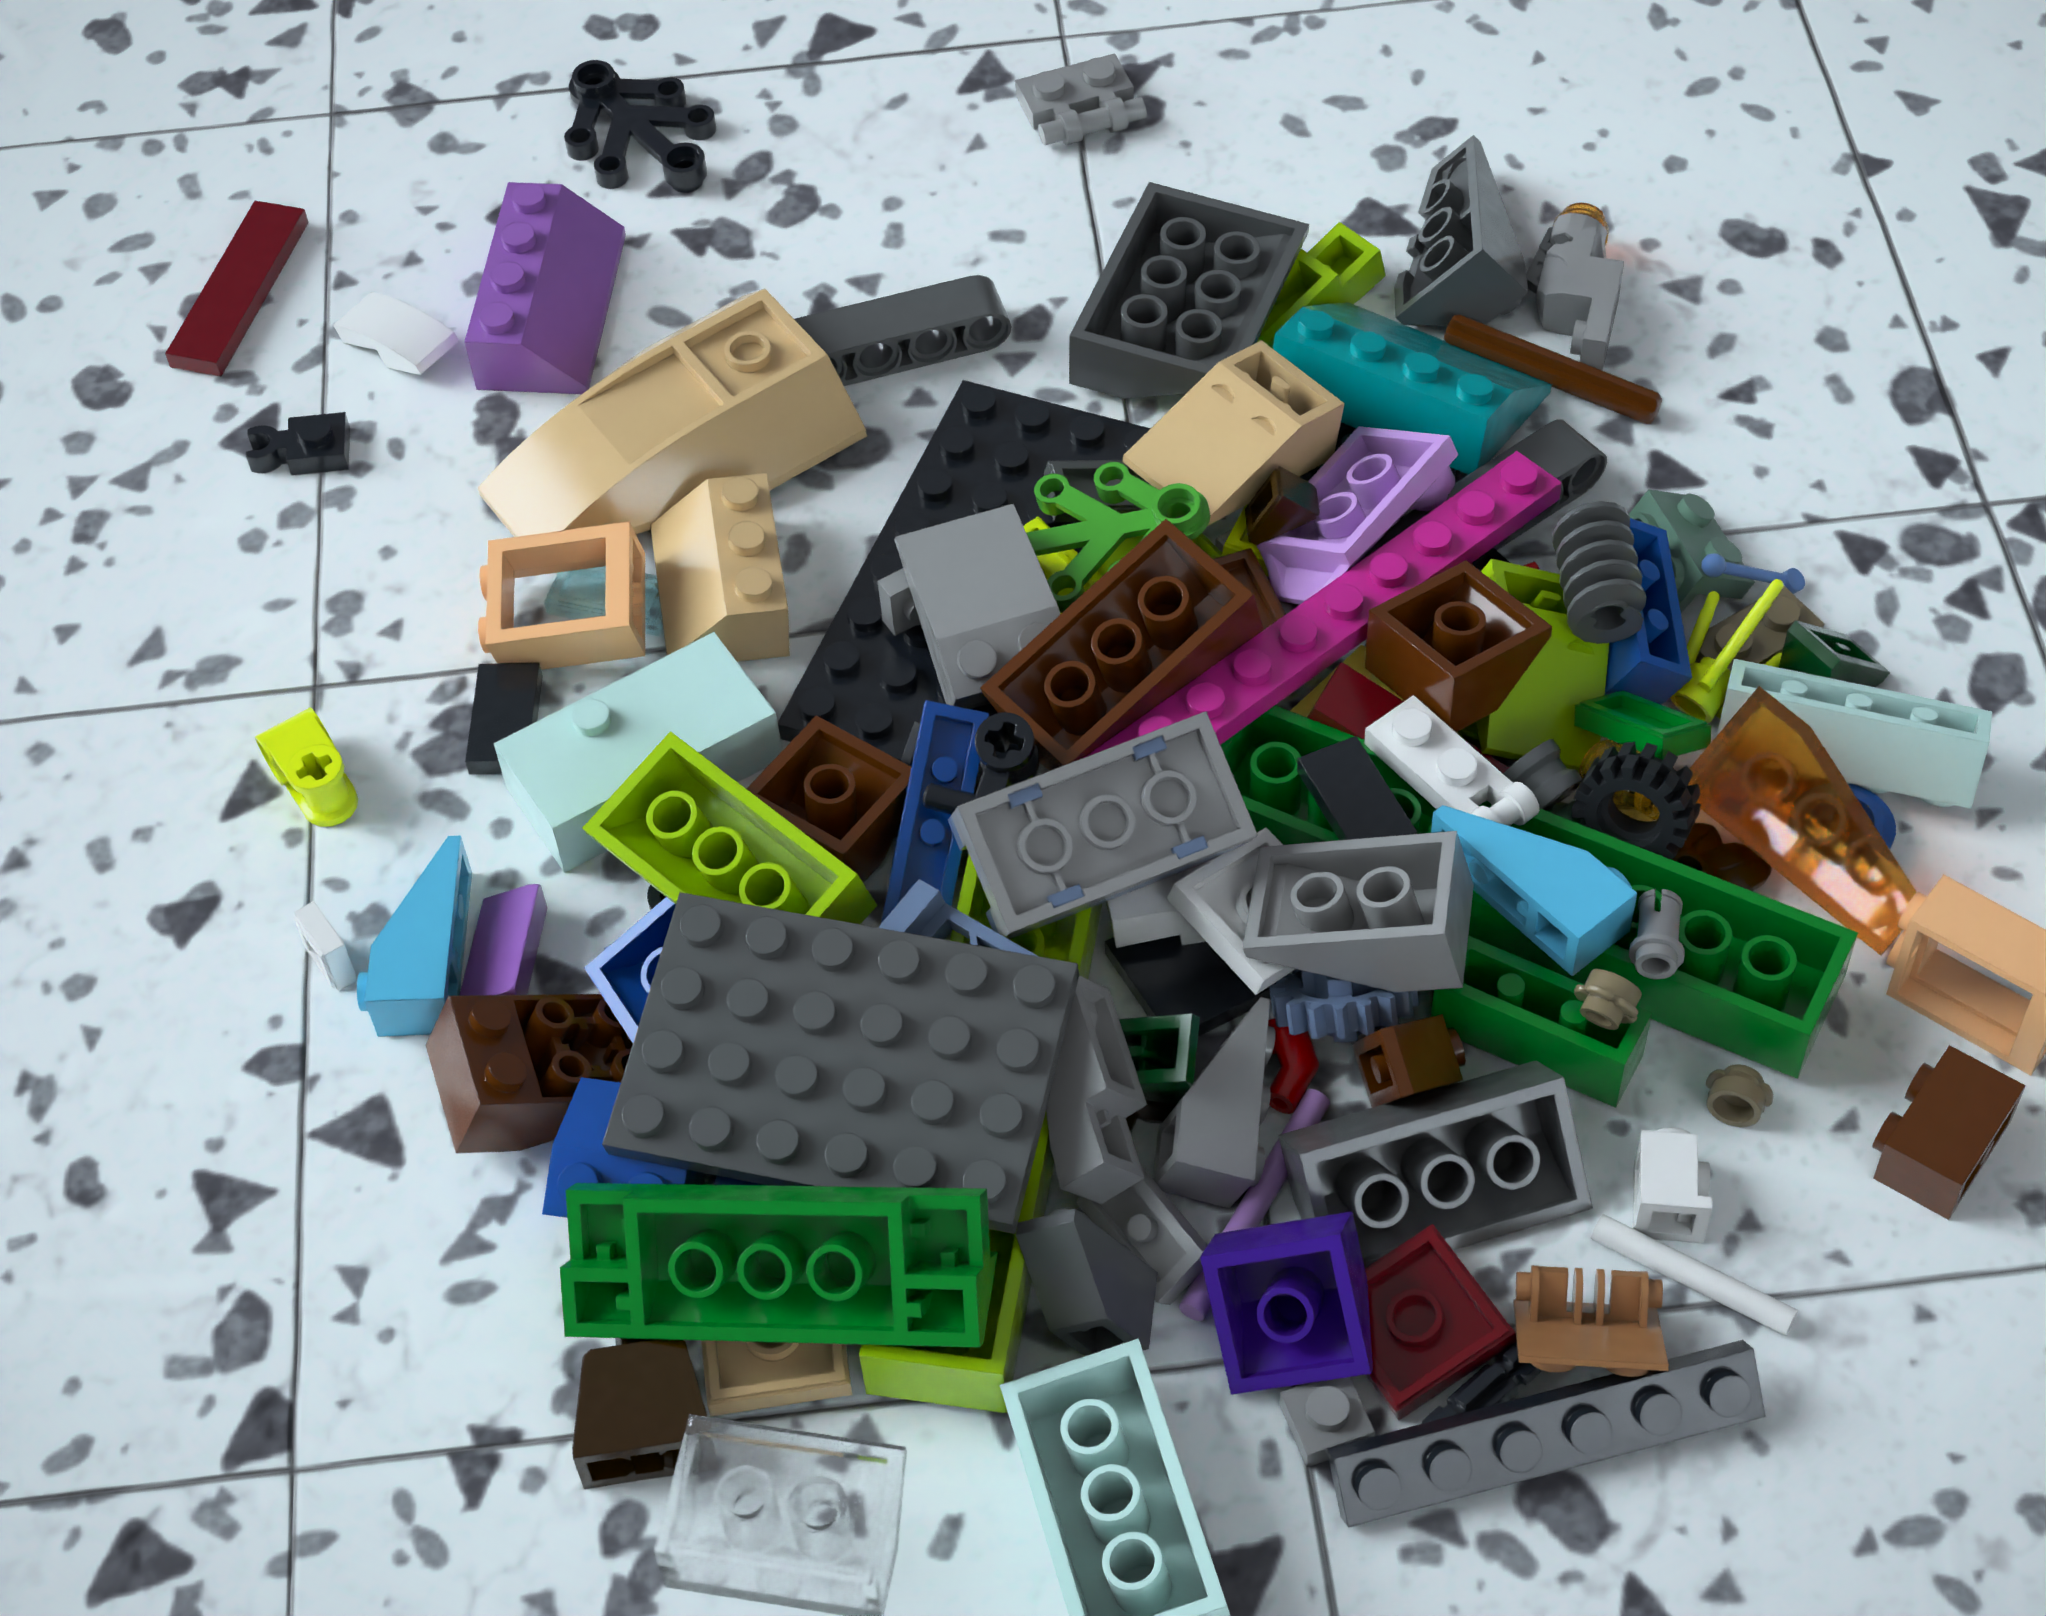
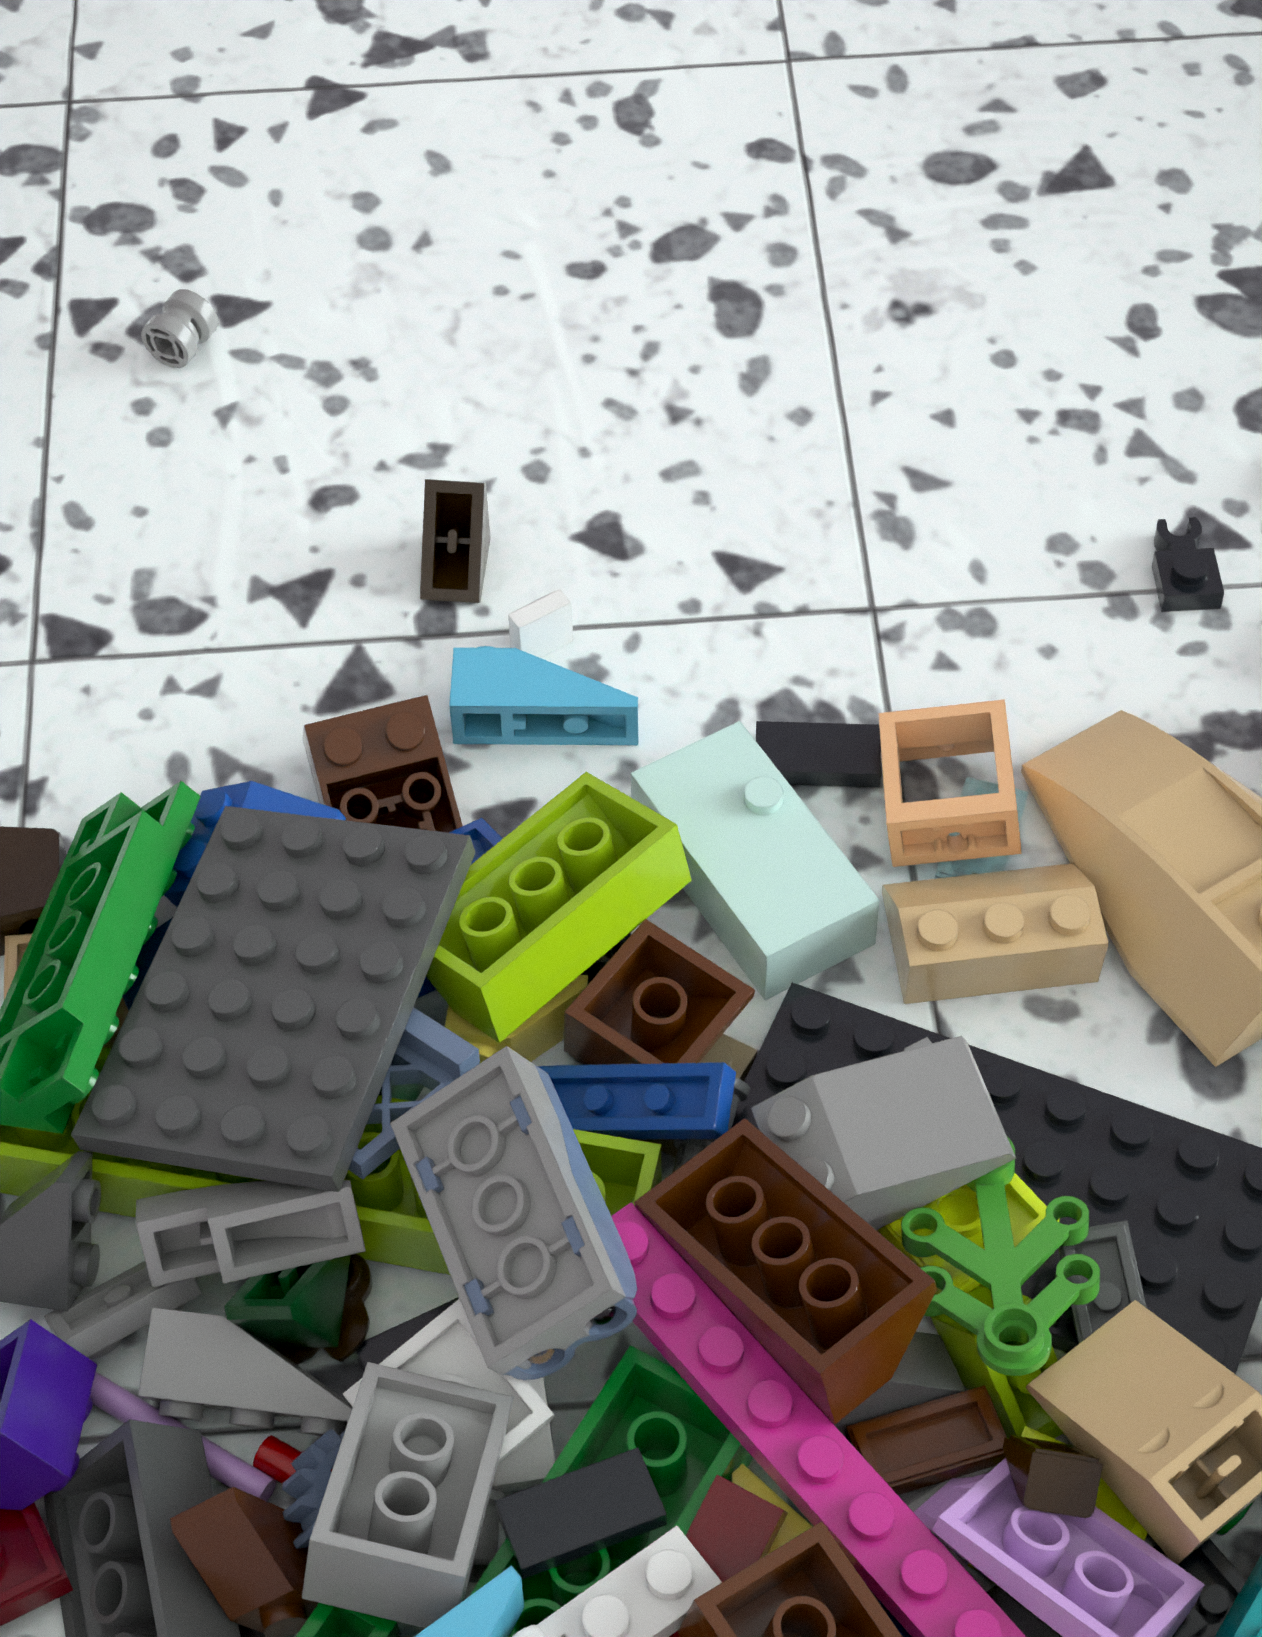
camera: 90 degrees right, 0 degrees up
(196, 1033) = (454, 540): none -> dark brown slope
(310, 768) = (758, 594): neon yellow piece -> none
(506, 943) = (523, 768): medium lavender slope -> none
(992, 737) = (643, 1135): black piece -> none

